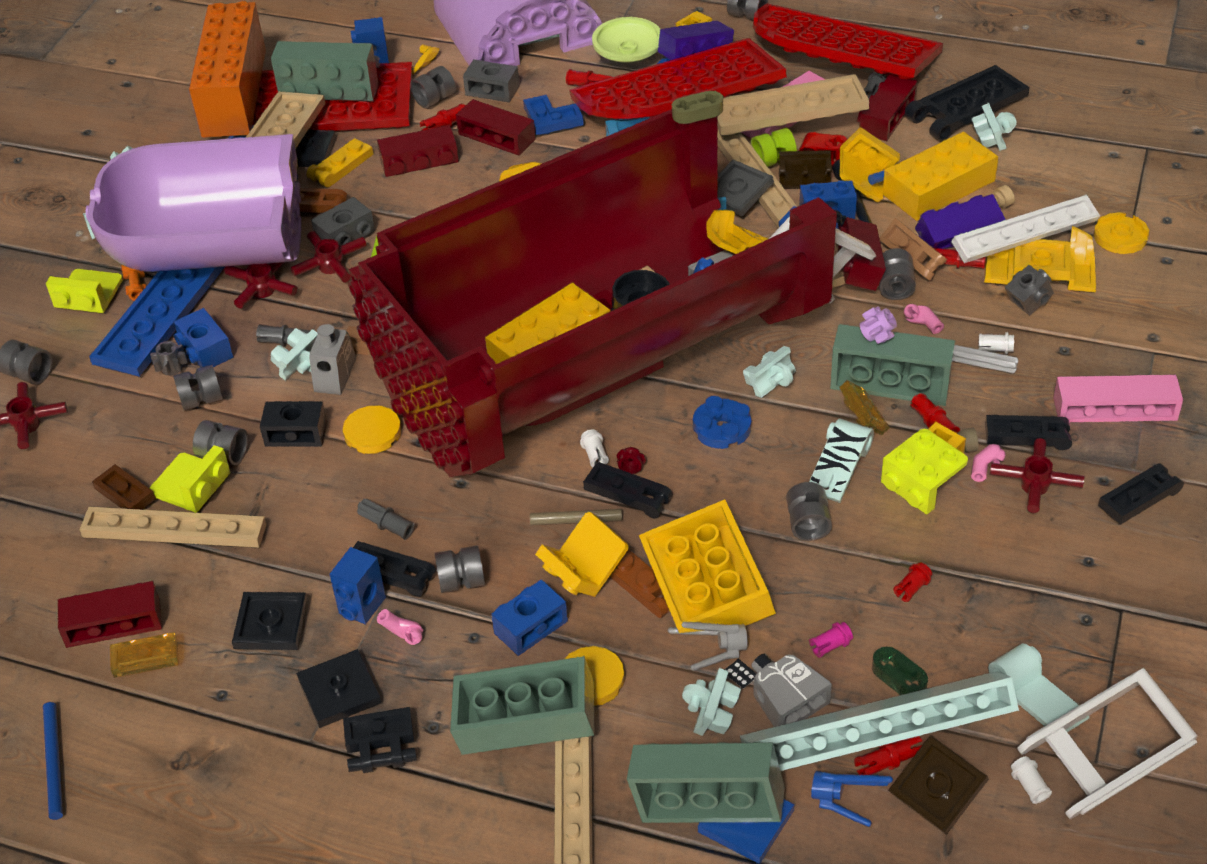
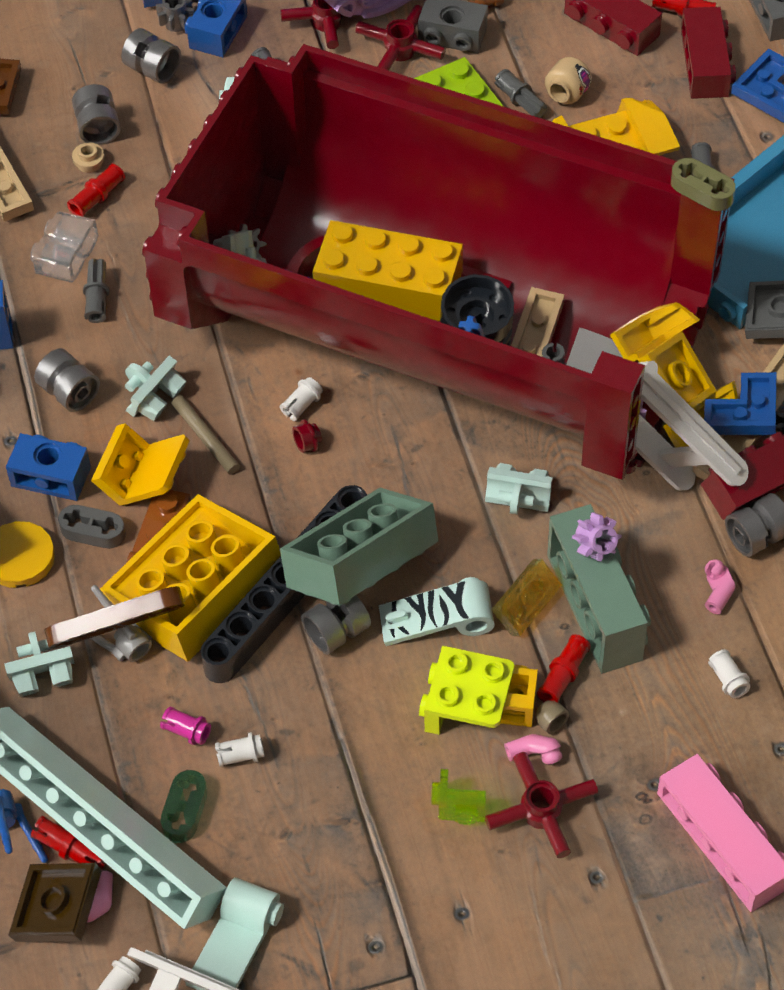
camera: 55 degrees right, 10 degrees up
(192, 480) = (41, 124): neon yellow bracket -> none
(250, 469) = (88, 157): none -> tan plate
(289, 477) = (96, 190): none -> red pin
(293, 424) = (157, 148): black brick -> none
(326, 517) = (64, 246): none -> clear brick
(397, 566) = (38, 323): black plate -> none
(451, 189) = (568, 80): none -> tan head
(507, 524) = (145, 399): none -> light aqua hips
(606, 621) = (92, 526): none -> dark grey beam
(628, 489) = (266, 454): black plate -> none
(716, 410) = (423, 468): blue plate -> none
(724, 622) = (114, 617): none -> beam
(740, 673) = (103, 673): black sticker -> none
(767, 549) = (266, 592): none -> black beam
(770, 459) = (359, 546): none -> sand green brick
(789, 689) = (92, 719): light grey torso -> none
(878, 610) = (240, 750): none -> white pin
(918, 575) = (310, 760): red pin -> none
(985, 359) = (687, 650): light grey axle -> none
(1004, 520) = (456, 804): none -> clear neon green bracket
(1026, 429) = (608, 767): black plate -> none
(1140, 493) = (591, 919): black plate -> none

